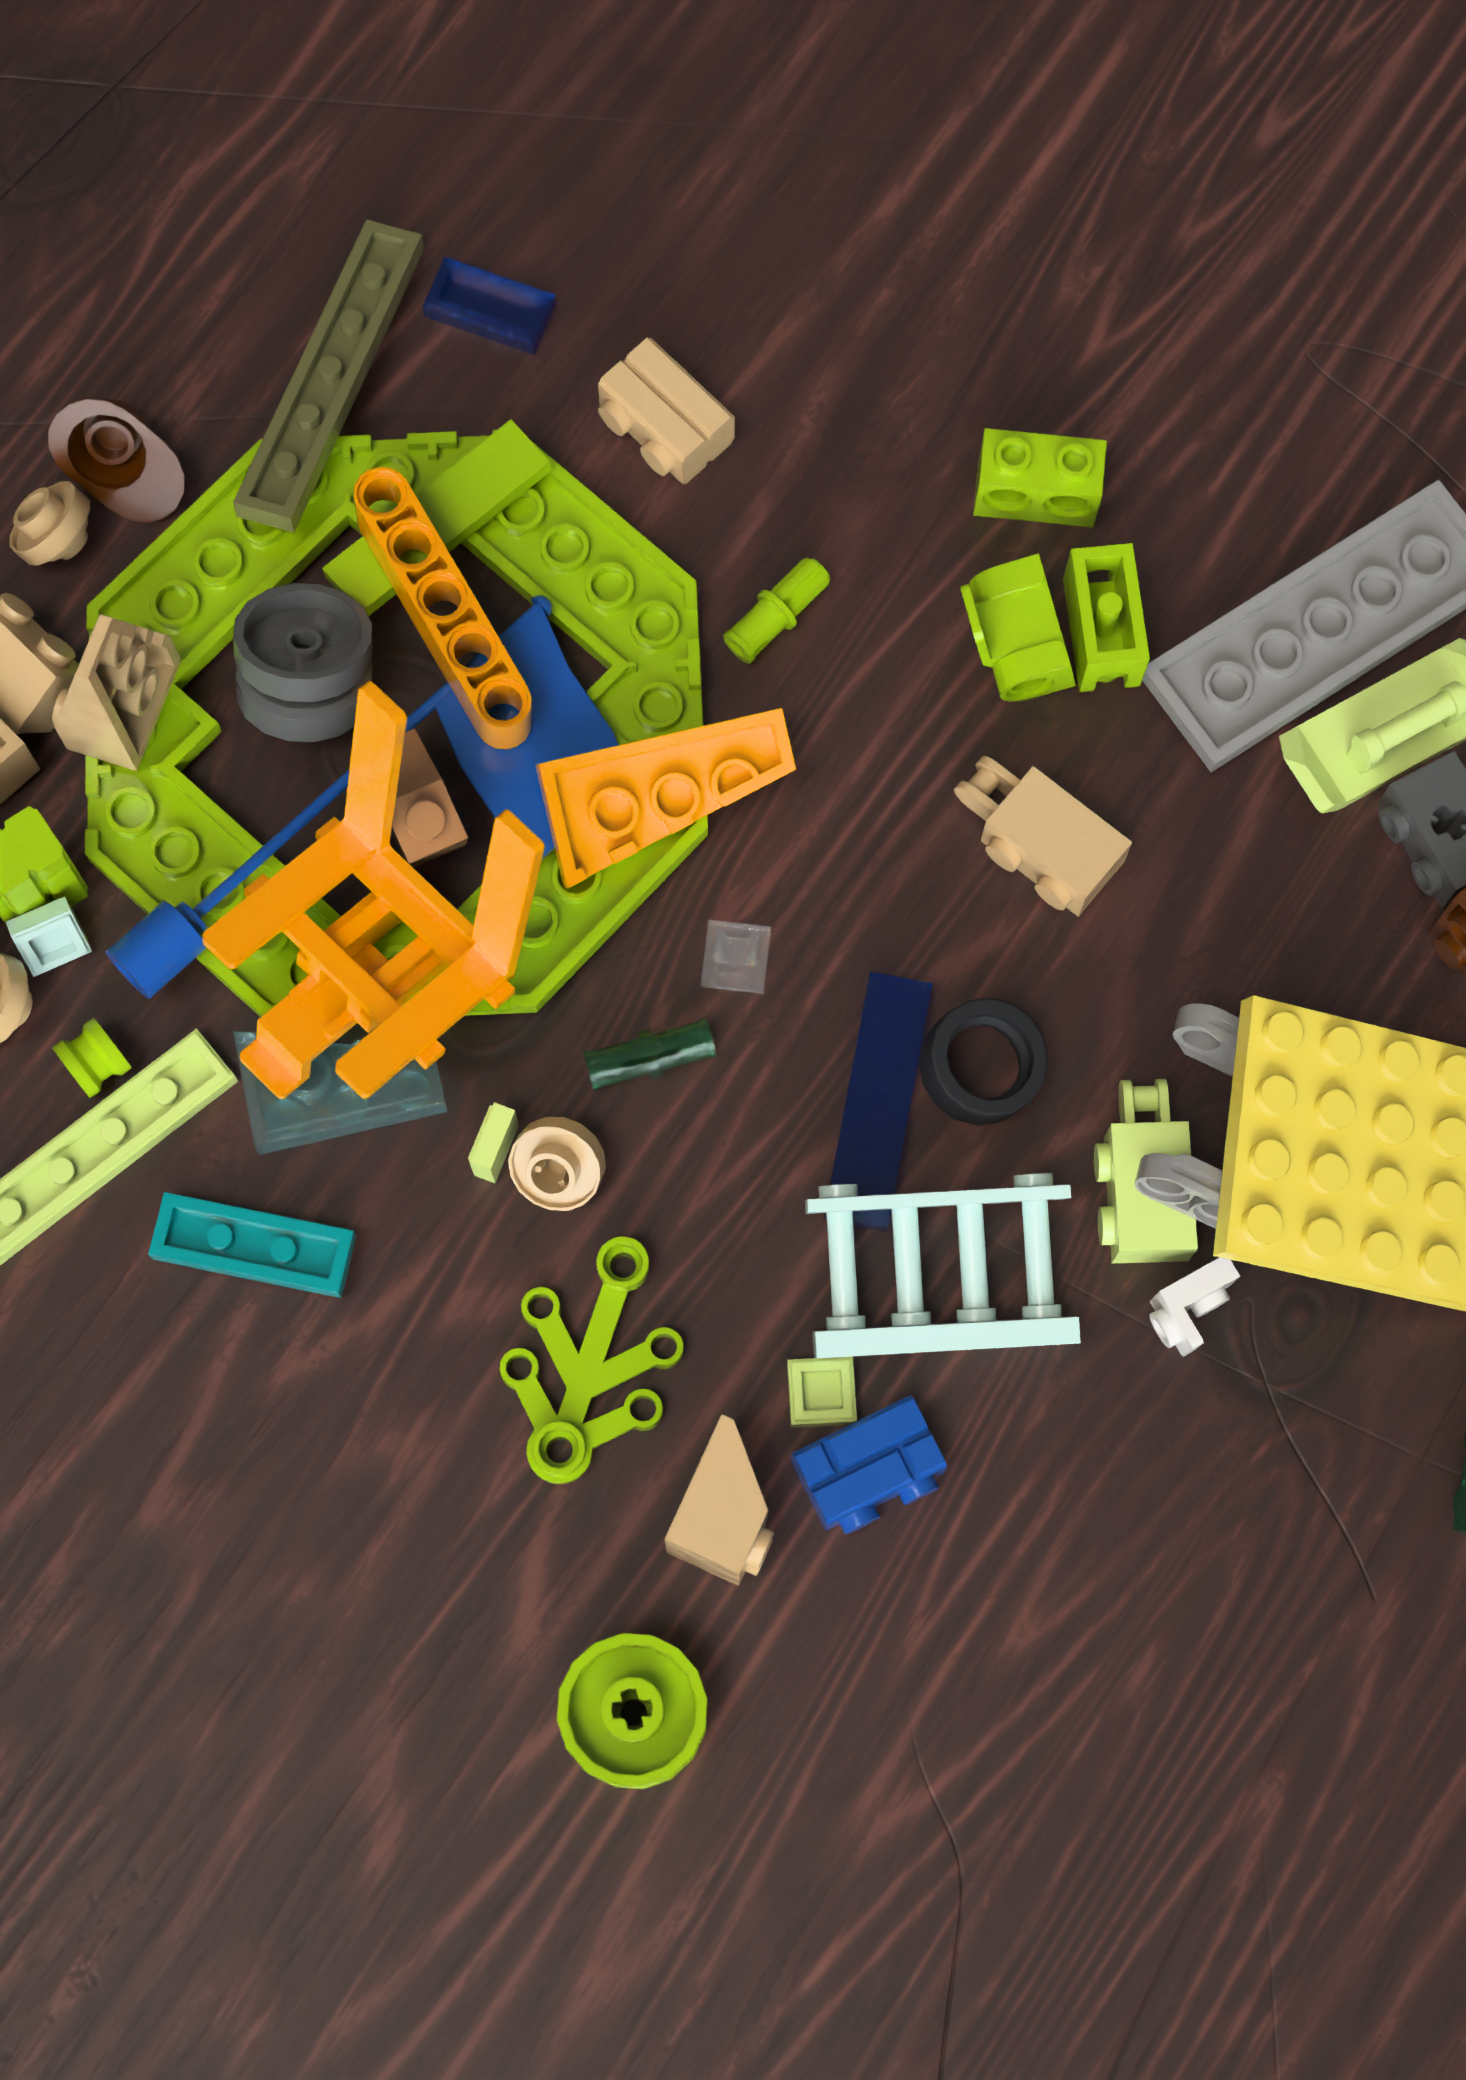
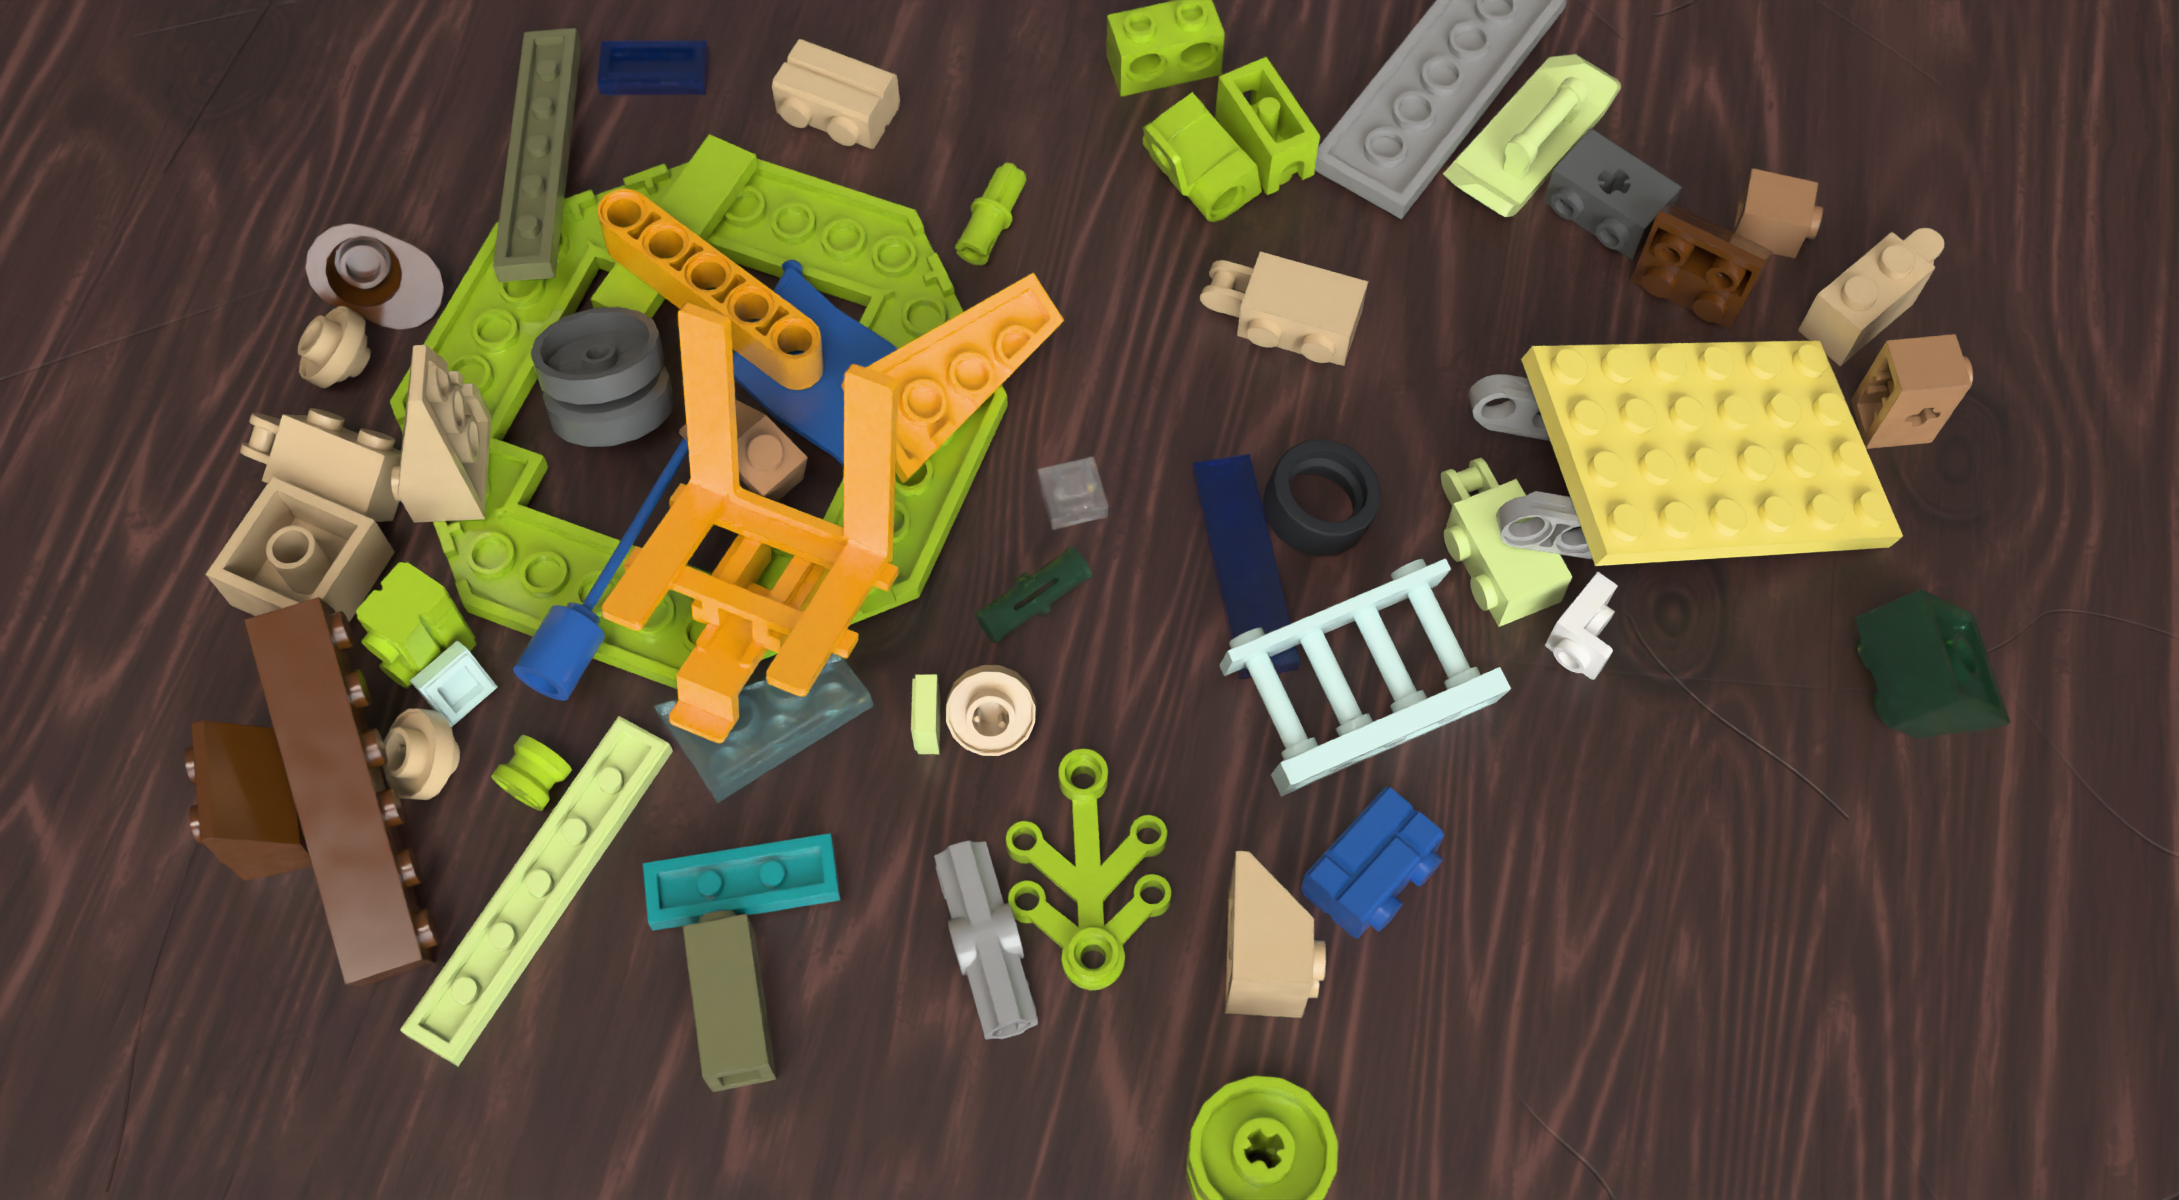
camera: 20 degrees left, 10 degrees down
(197, 1359) = (728, 1001): none -> olive brick
(462, 1393) = (985, 940): none -> light grey piece
(821, 1392) = (1302, 821): yellowish green tile -> none

